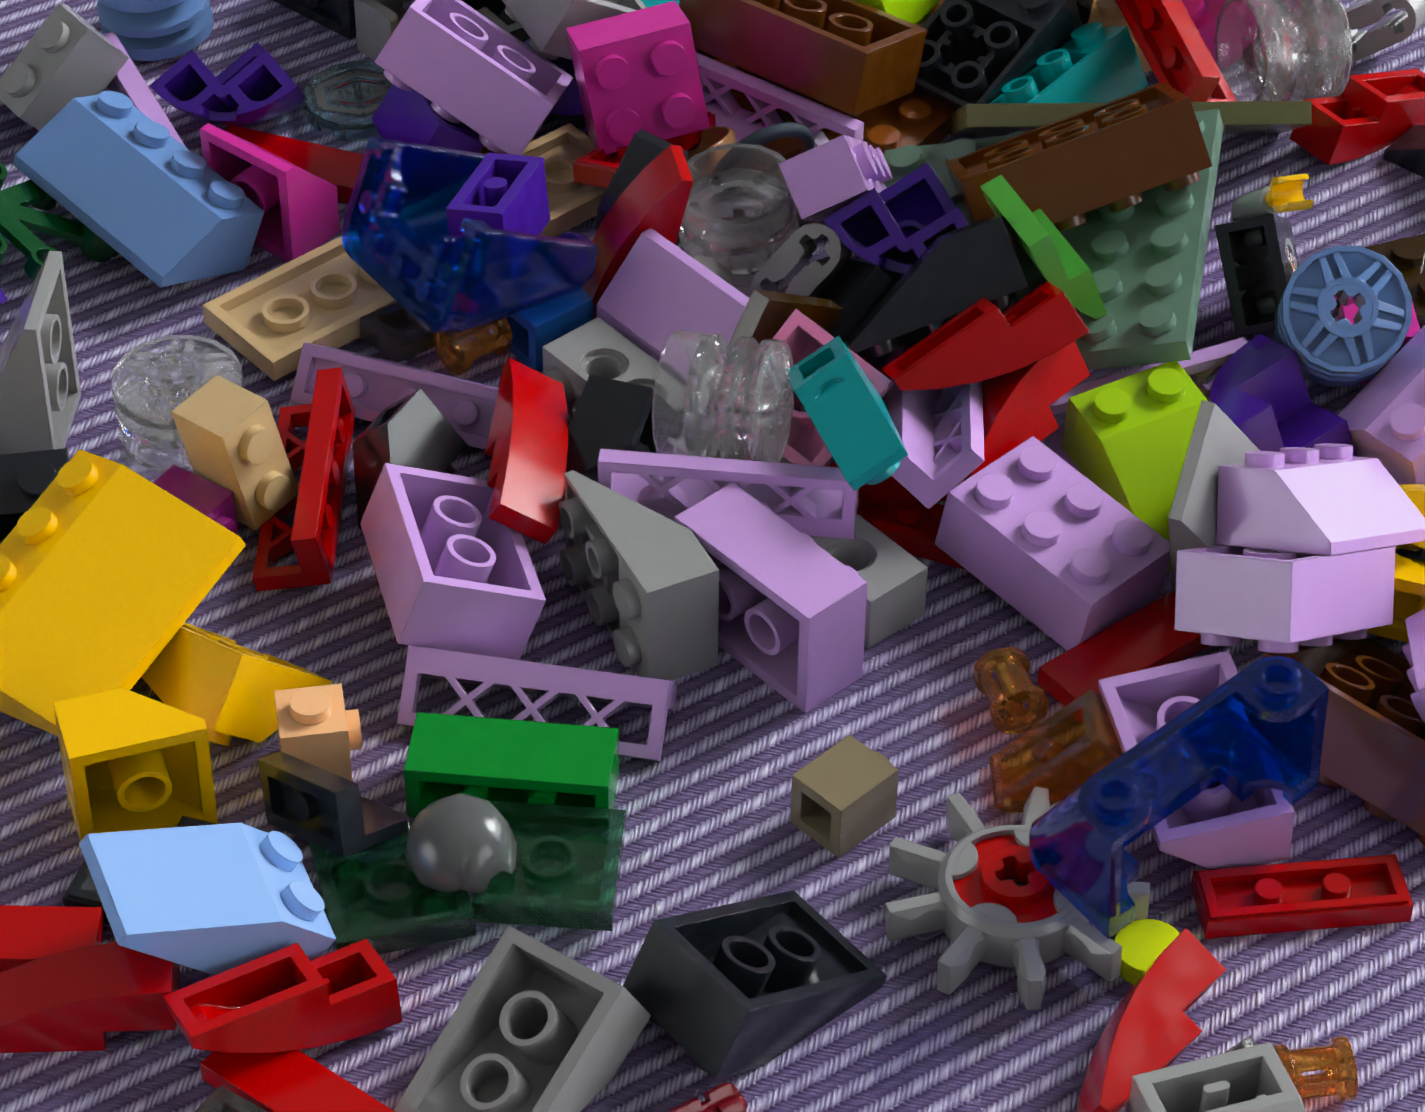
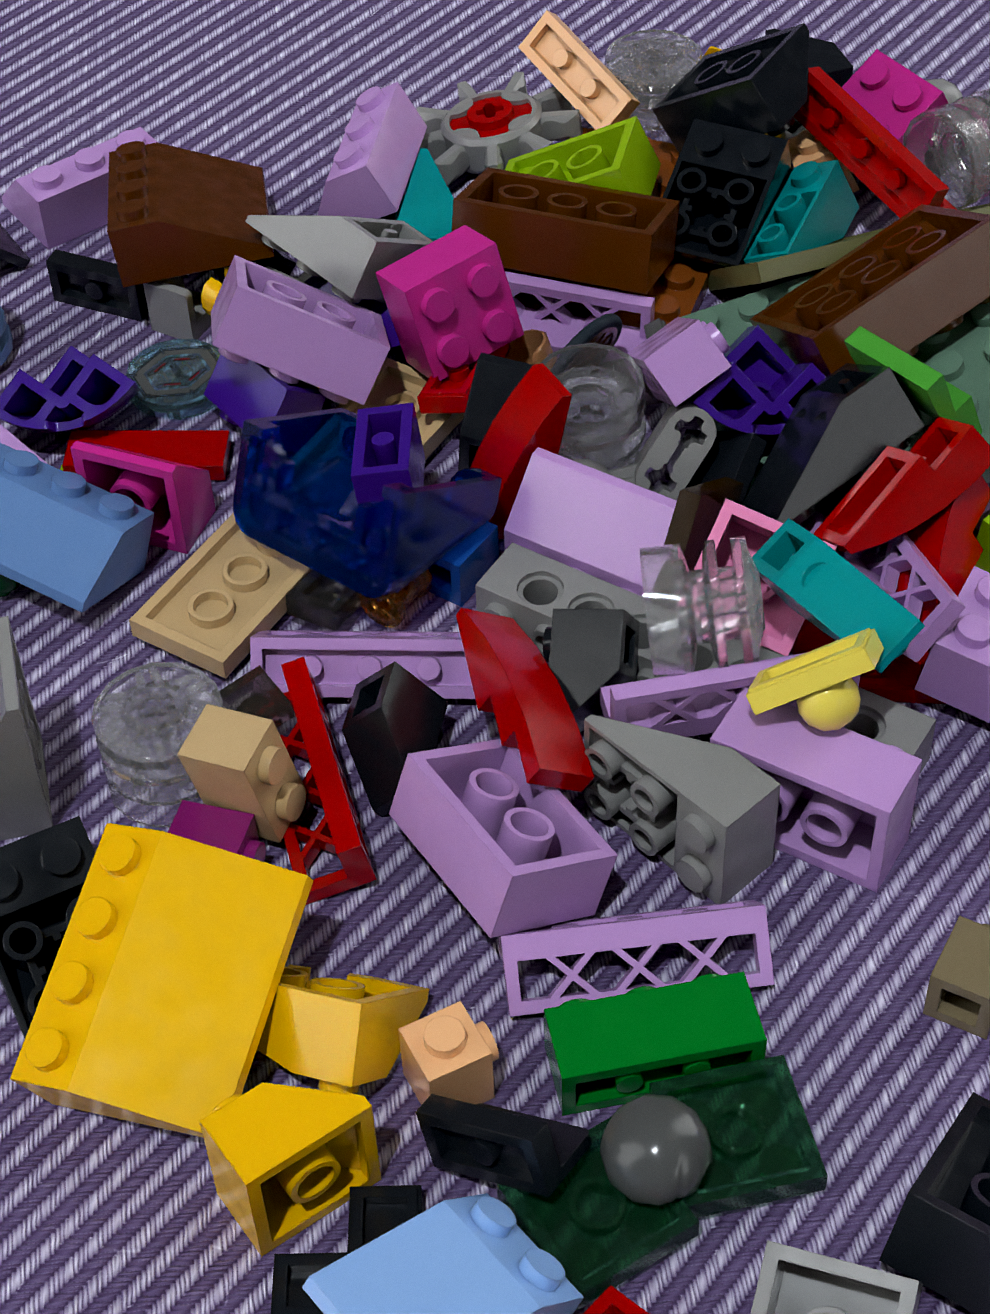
camera: 15 degrees left, 5 degrees up
(286, 398) = (258, 696): none -> clear smoke plate
(792, 495) = (819, 681): none -> light yellow tile

